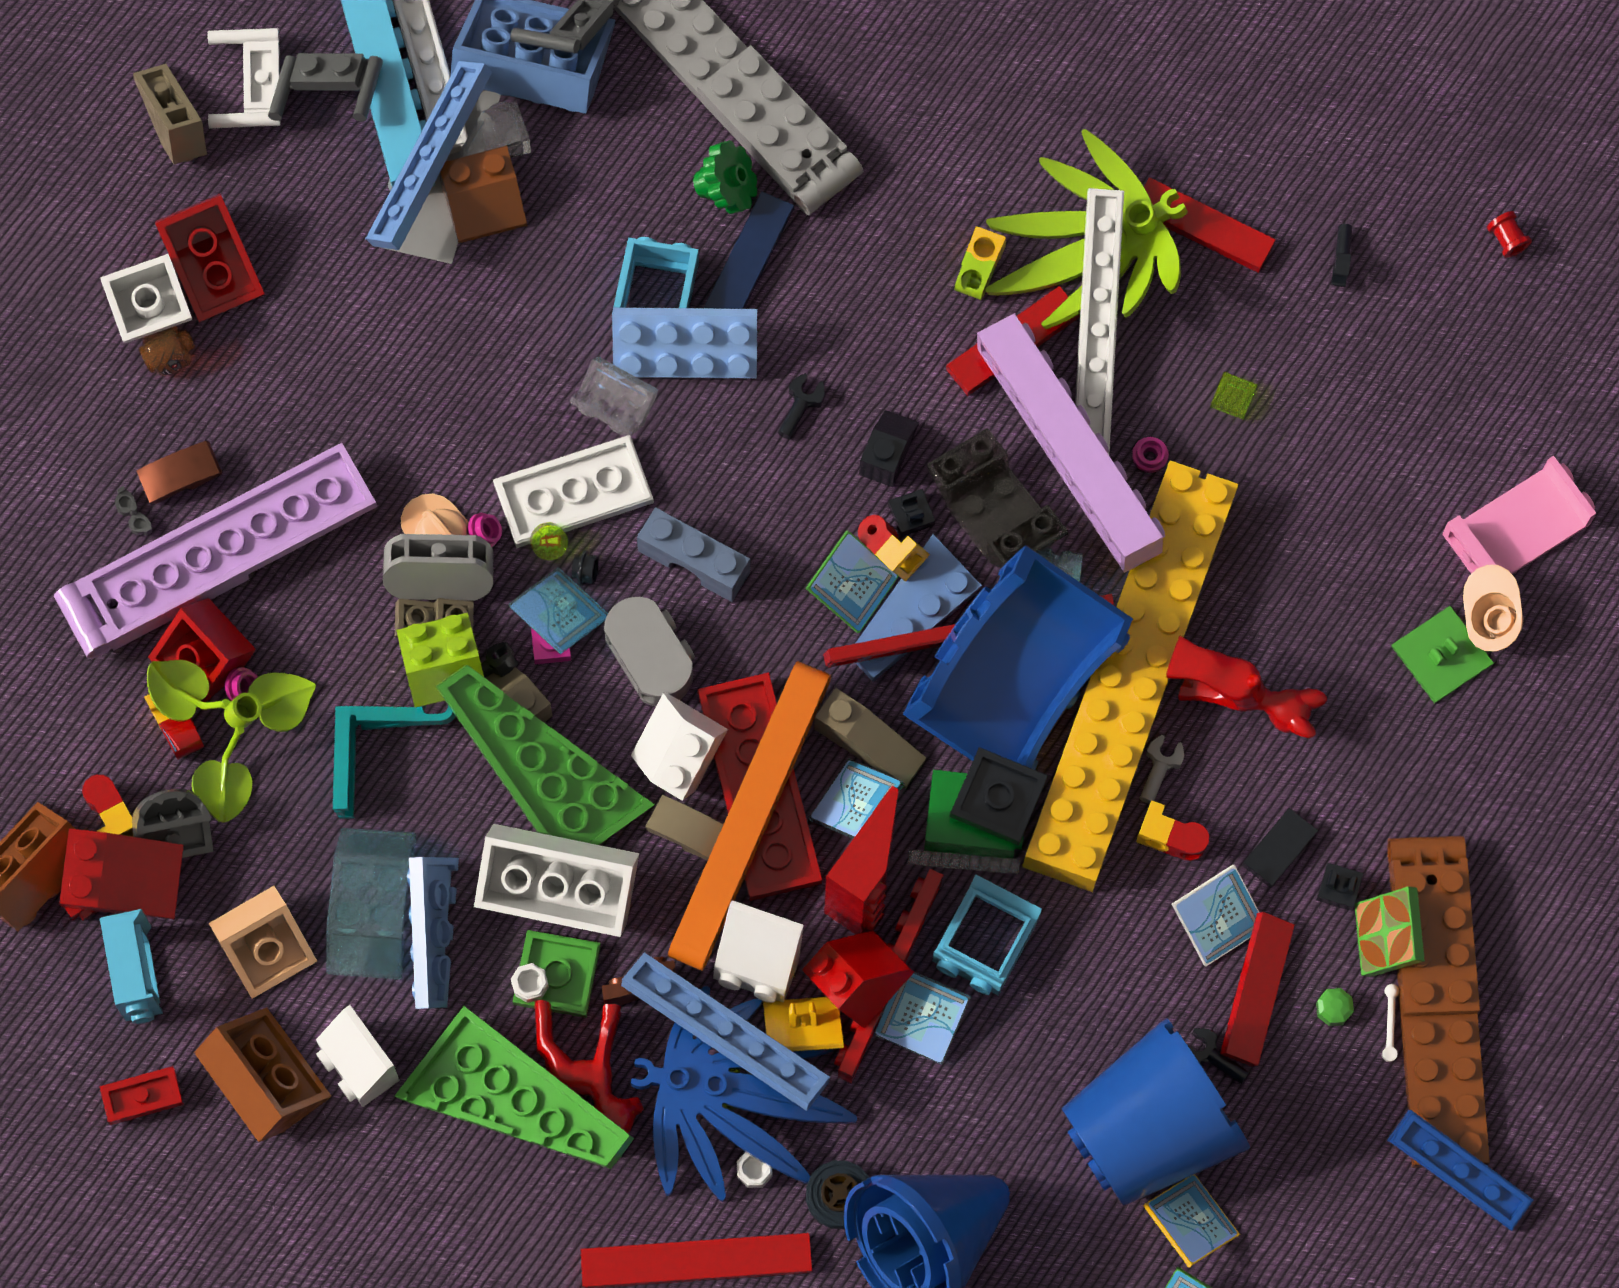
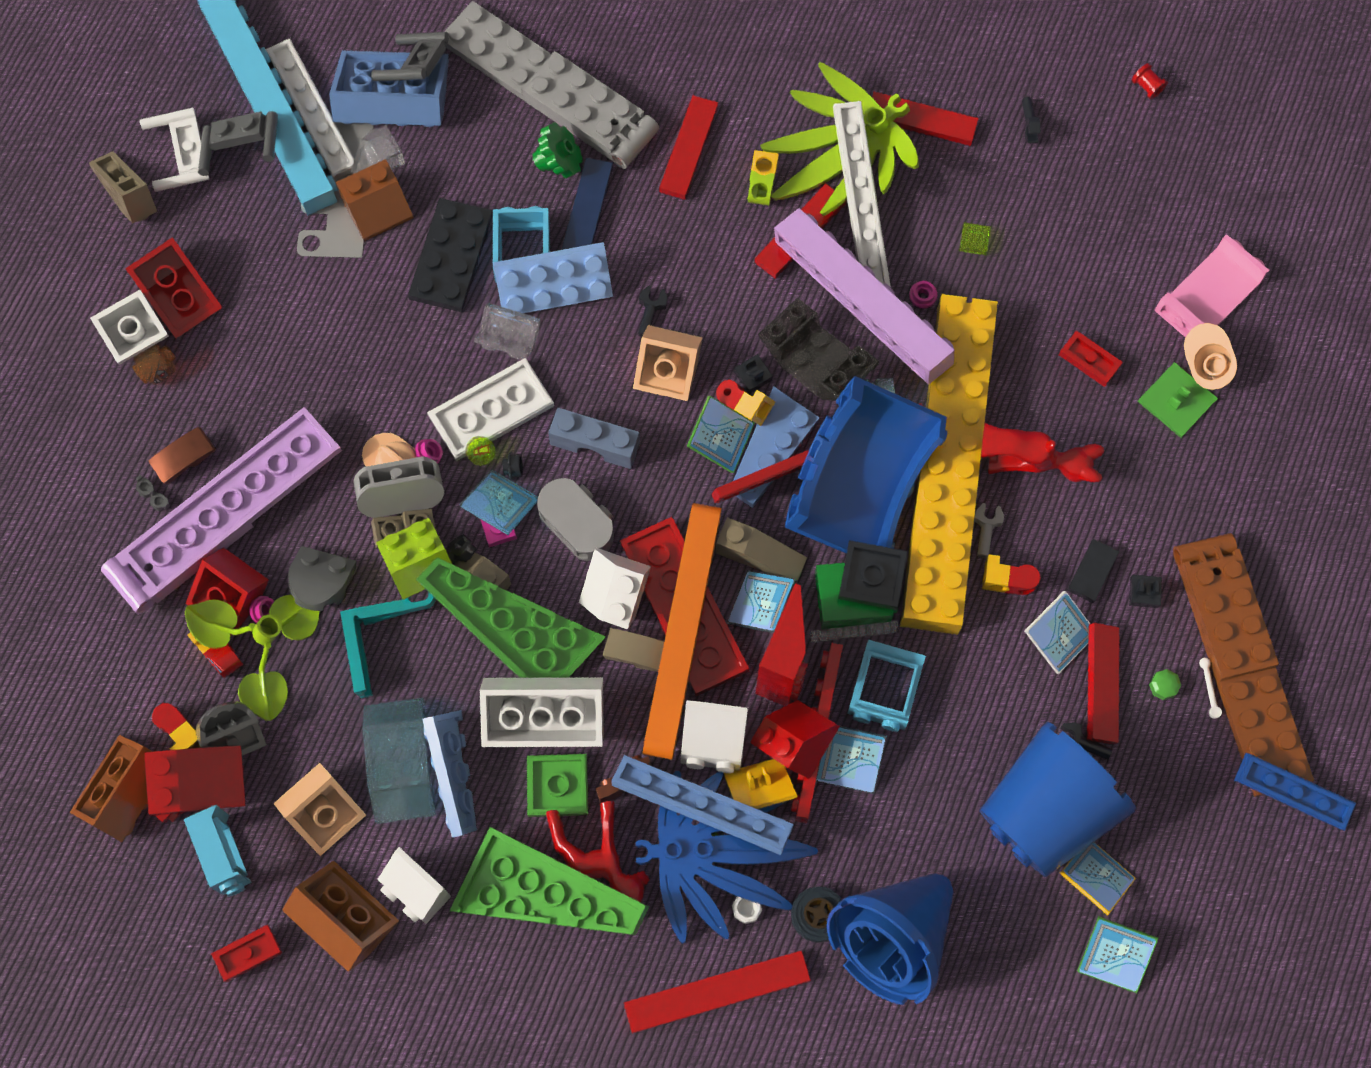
camera: 10 degrees left, 0 degrees up
(318, 660) = (319, 578): none -> dark grey slope
(428, 155) = (327, 177): medium blue plate -> none
(529, 982) = (538, 797): white tile -> none
(563, 283) = (450, 255): none -> black plate
(806, 477) = (667, 362): none -> light nougat slope
(887, 448) = (724, 329): black slope -> none
(895, 203) = (688, 147): none -> red tile
(1342, 579) = (1090, 358): none -> red plate
(1389, 931) = (1195, 618): tile -> none

